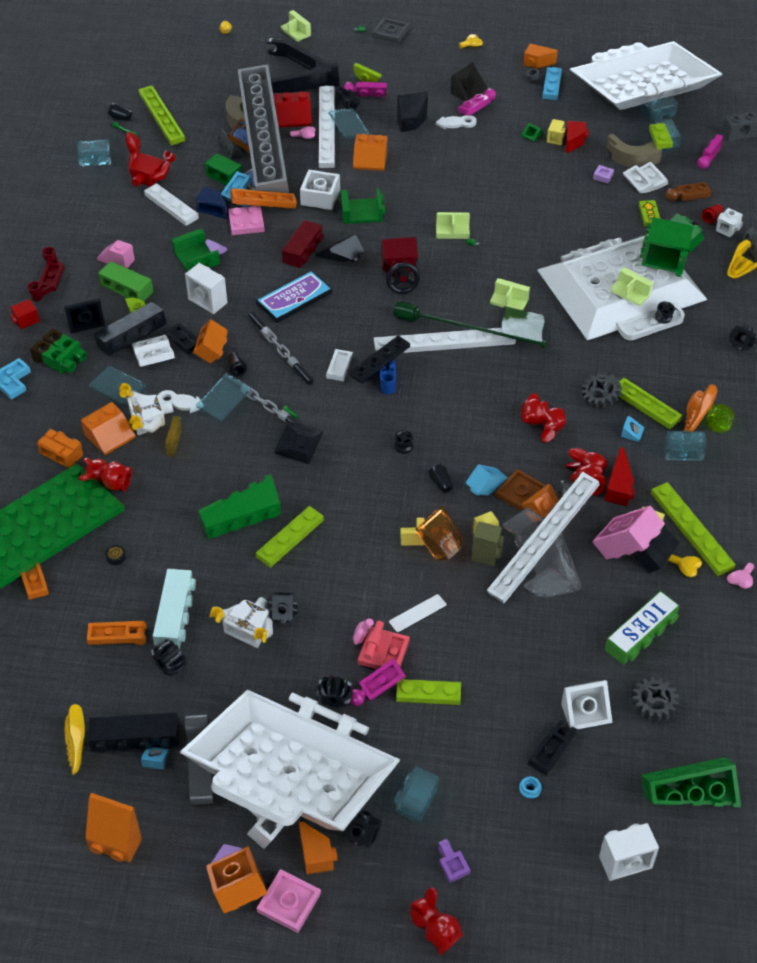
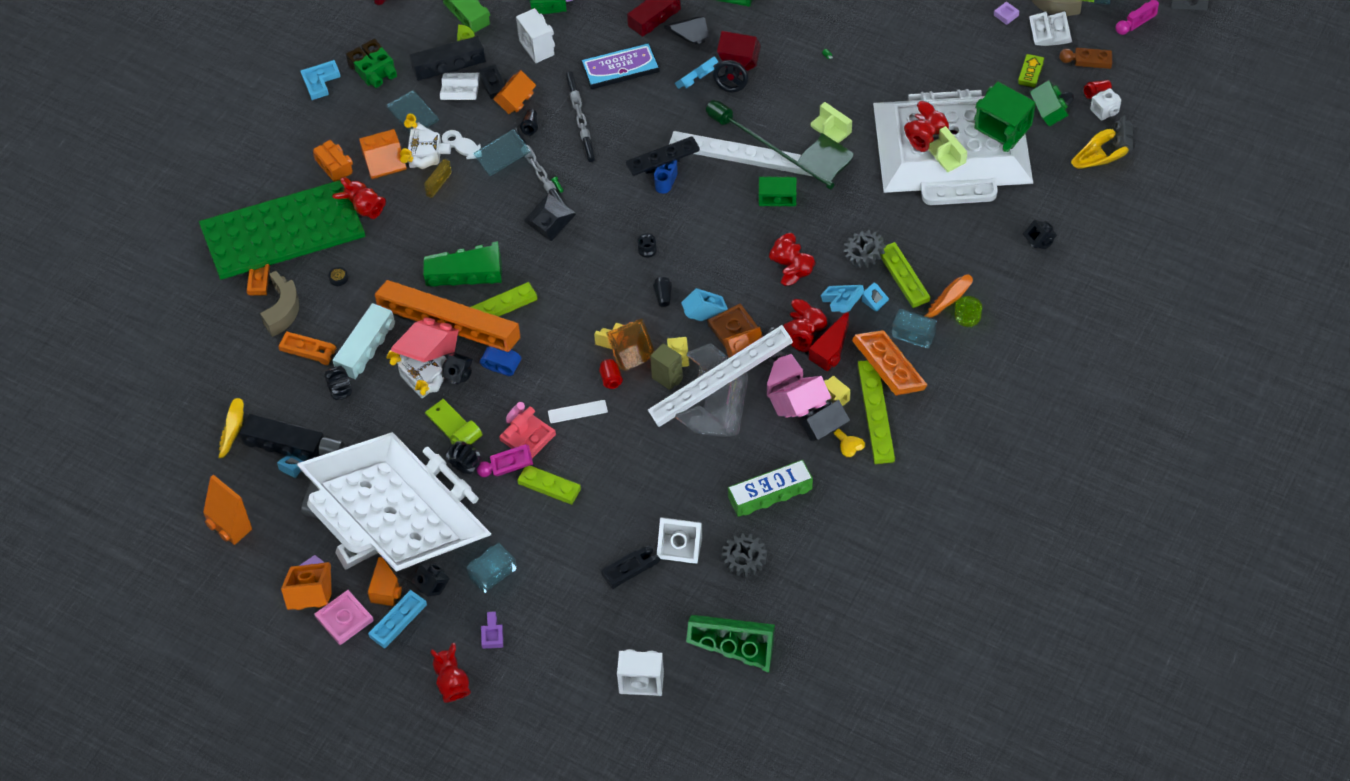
camera: 25 degrees right, 5 degrees up
(24, 314) = (357, 16): red brick -> none
(76, 607) = (285, 310): none -> dark tan arch
(84, 315) = (409, 33): black slope -> none
(243, 588) = (427, 340): none -> coral slope
(250, 558) = (469, 321): none -> orange brick
(303, 663) = (453, 424): none -> lime door
(319, 586) = (500, 360): none -> blue beam
(339, 365) = (627, 149): white tile -> none
(346, 883) = (397, 619): none -> medium azure plate
(371, 282) = (701, 71): none -> medium azure plate
(433, 567) = (610, 374): none -> red brick
(452, 225) = (815, 31): yellowish green panel -> none
(496, 363) = (777, 191): none -> green brick
(530, 782) = (592, 589): medium azure plate -> none
(594, 519) = (784, 372): none -> bright pink slope
(604, 273) = (929, 122): none -> red animal
(611, 434) = (842, 297): none -> medium azure plate
(664, 312) = (977, 182): black wheel -> none
(682, 480) = (889, 362): none -> orange plate
(742, 577) = (895, 473): bright pink rock -> none

